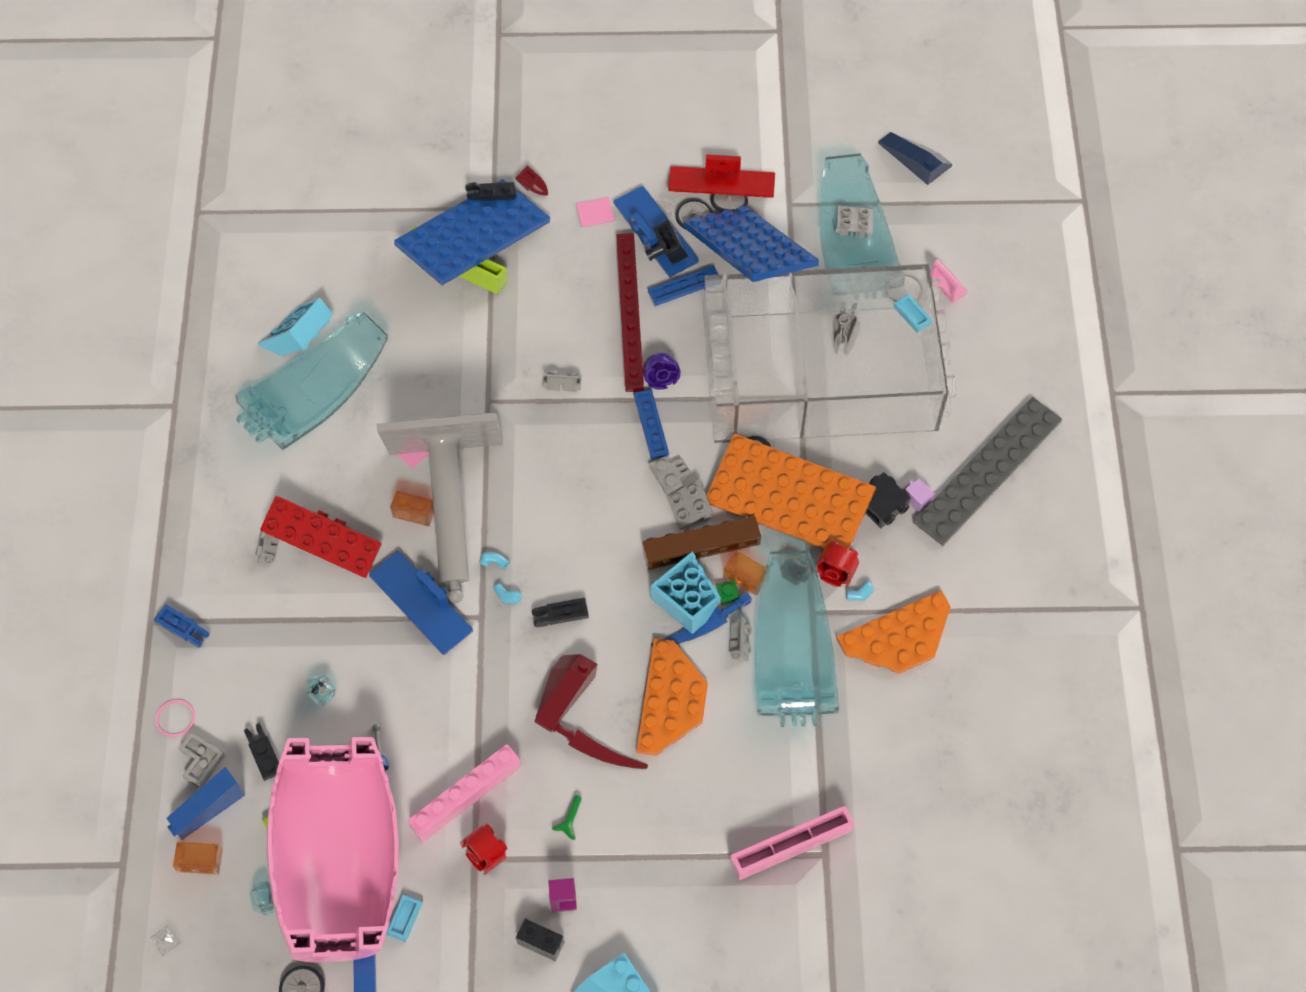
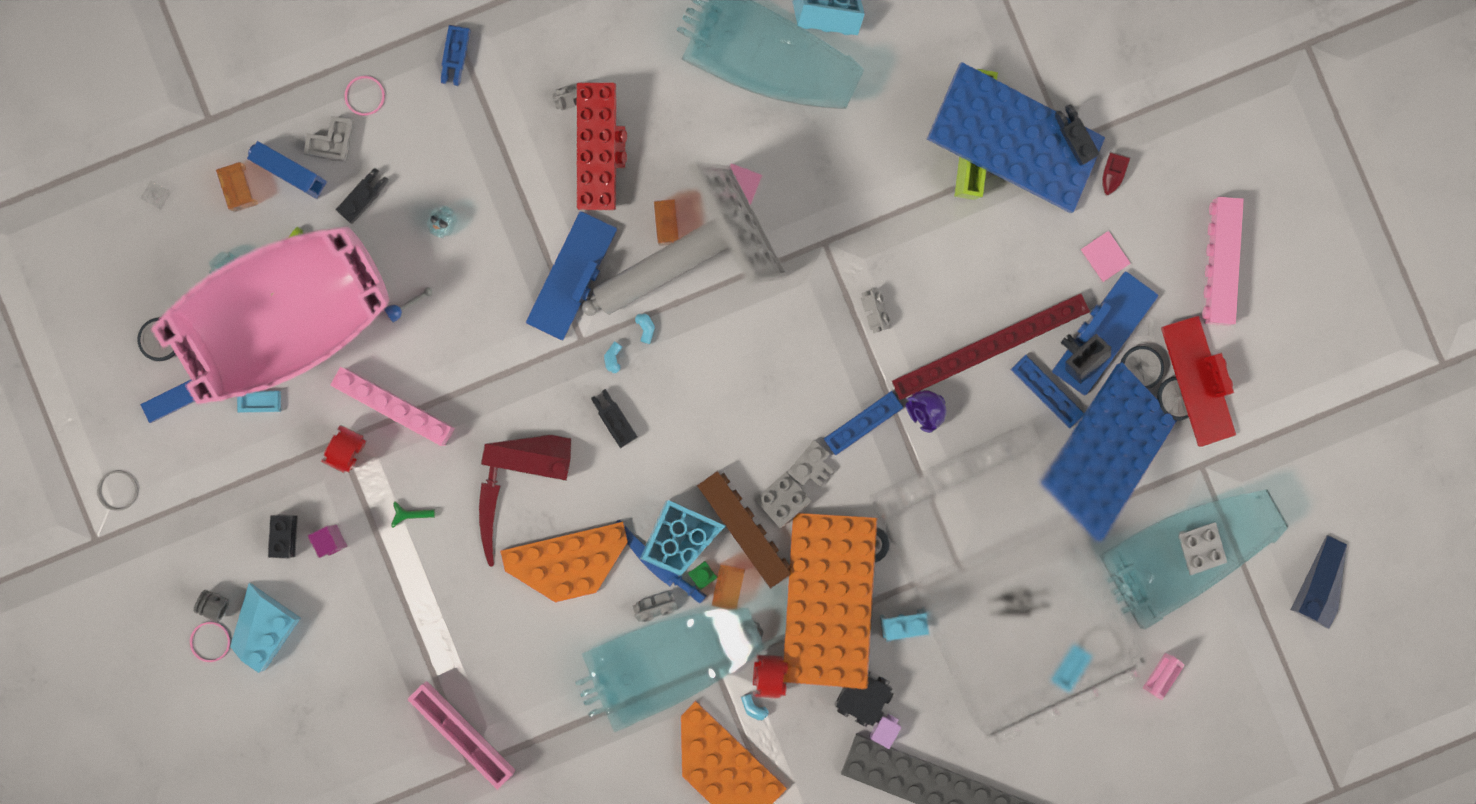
camera: 75 degrees right, 25 degrees up
(636, 135) = (1224, 261): none -> bright pink brick
(833, 443) = (904, 626): none -> medium azure window

